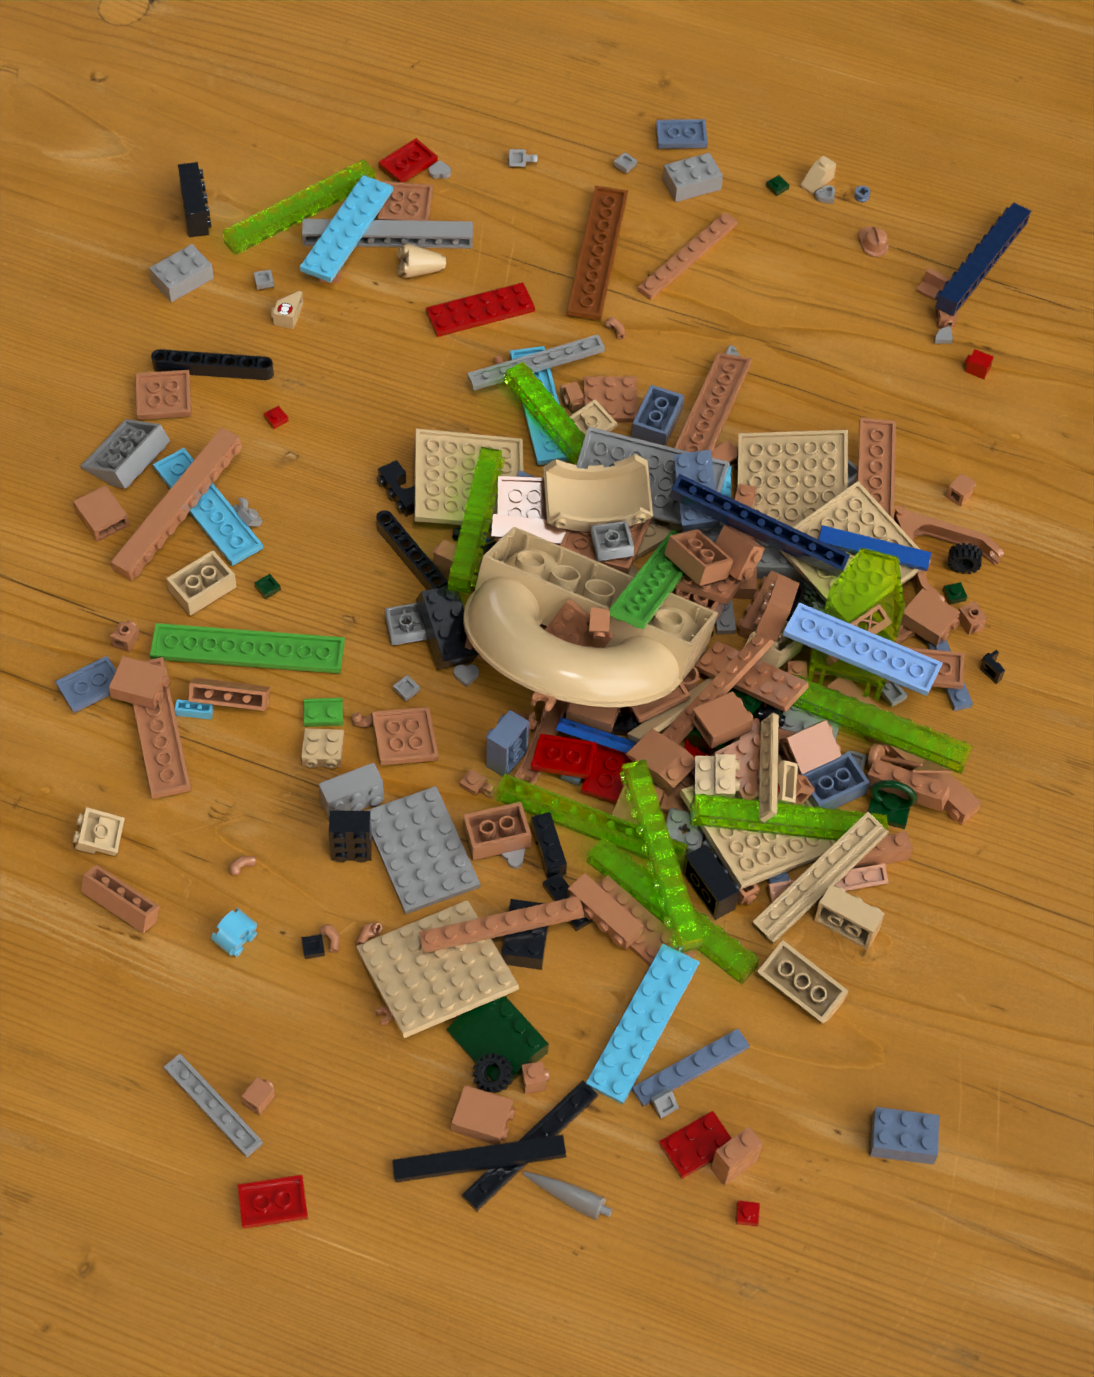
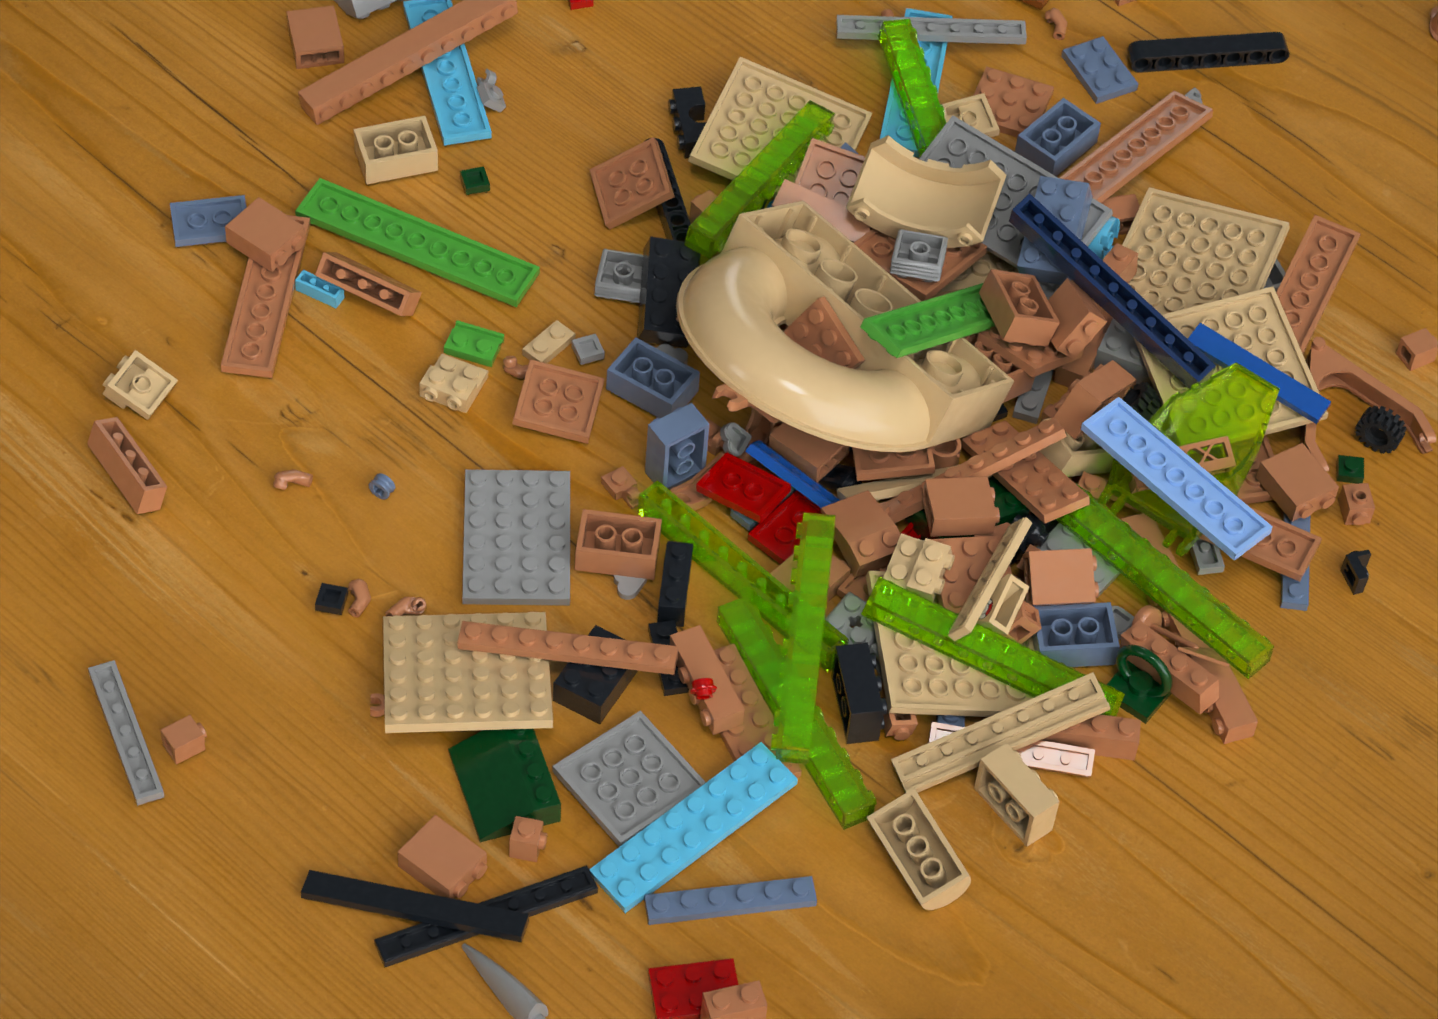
camera: 20 degrees right, 5 degrees down
(125, 635) = (277, 181): nougat brick -> none
(234, 932) = (243, 548): medium azure brick -> none
(272, 1201) = (143, 863): red plate -> none
(309, 846) = (382, 486): none -> sand blue bush
(350, 836) = (433, 485): black brick -> none
(352, 790) = (460, 440): light grey brick -> none
(376, 693) = (549, 343): none -> tan plate
(381, 551) = (631, 183): none -> nougat plate
(464, 696) = (652, 379): none -> sand blue brick
(505, 1073) = (469, 805): black tyre -> none
(541, 721) = (734, 438): none -> light grey tile
(572, 396) = (959, 82): nougat brick -> none
(582, 1004) = (628, 777): none -> light grey plate
(599, 623) = (847, 335): nougat brick -> none
(610, 921) = (703, 688): none -> red plate
(660, 353) = (1099, 70): none -> sand blue plate
(664, 1103) = (675, 927): light grey plate -> none
(727, 315) = (1208, 52): none -> black beam

